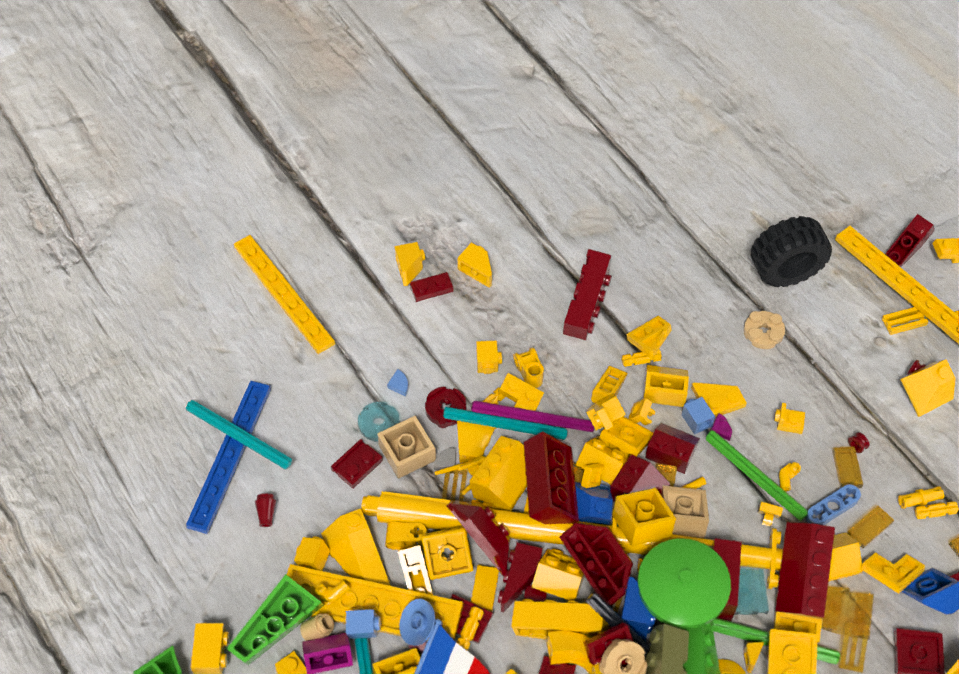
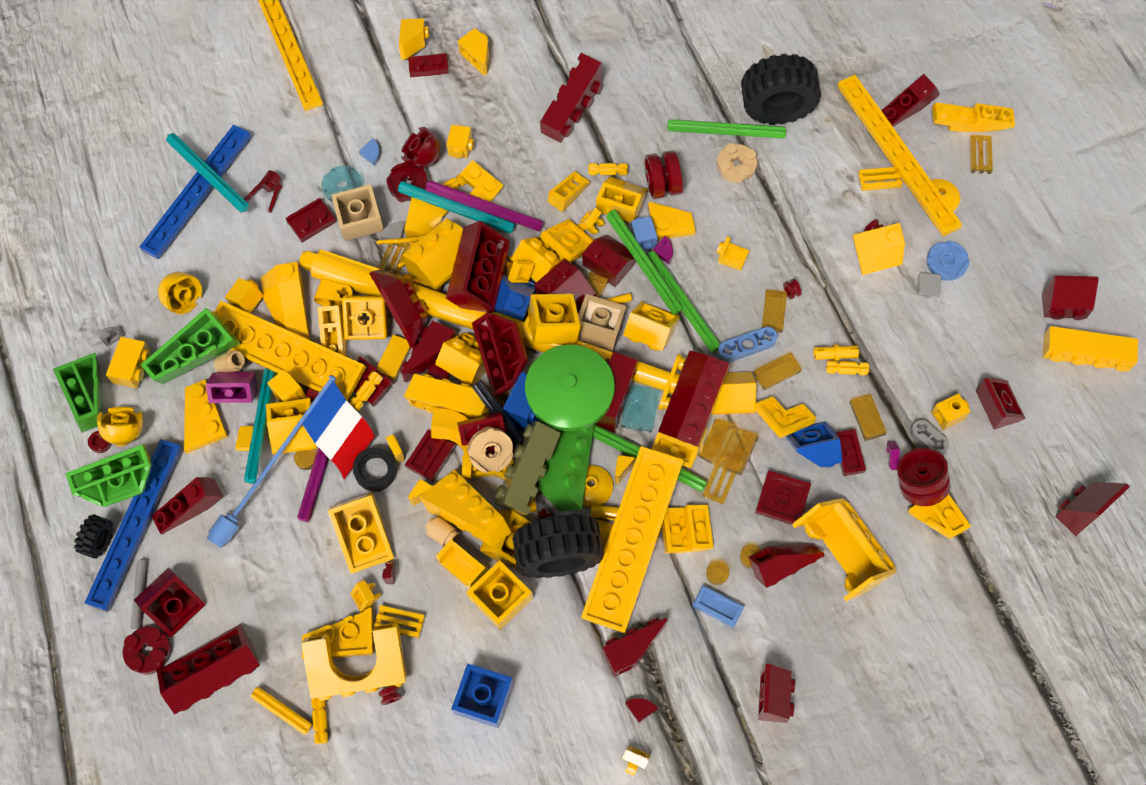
camera: 15 degrees right, 10 degrees up
(178, 624) = (110, 335): none -> light grey tile
(242, 563) = (179, 292): none -> yellow cylinder
(265, 509) = (214, 246): dark red cone -> none
(303, 433) = (269, 182): none -> dark red plant
(331, 593) = (248, 334): yellow arm -> none
(362, 624) = (266, 365): medium blue brick -> none
(388, 643) = (285, 387): none -> yellow panel
(417, 622) = (315, 374): medium blue dish -> none
(452, 370) = (421, 149): none -> dark red cylinder
(529, 364) = (497, 157): yellow piece -> none
(605, 412) = (553, 214): yellow brick -> none
(650, 335) = (621, 149): yellow wing -> none
(701, 353) = (663, 174): none -> dark red wheel
(709, 443) = (644, 262): none -> bright green axle
(735, 506) = (651, 326): none -> yellow slope
(743, 298) = (726, 128): none -> bright green axle
(769, 512) = (682, 339): yellow tile -> none
(787, 473) = (713, 305): yellow arm -> none

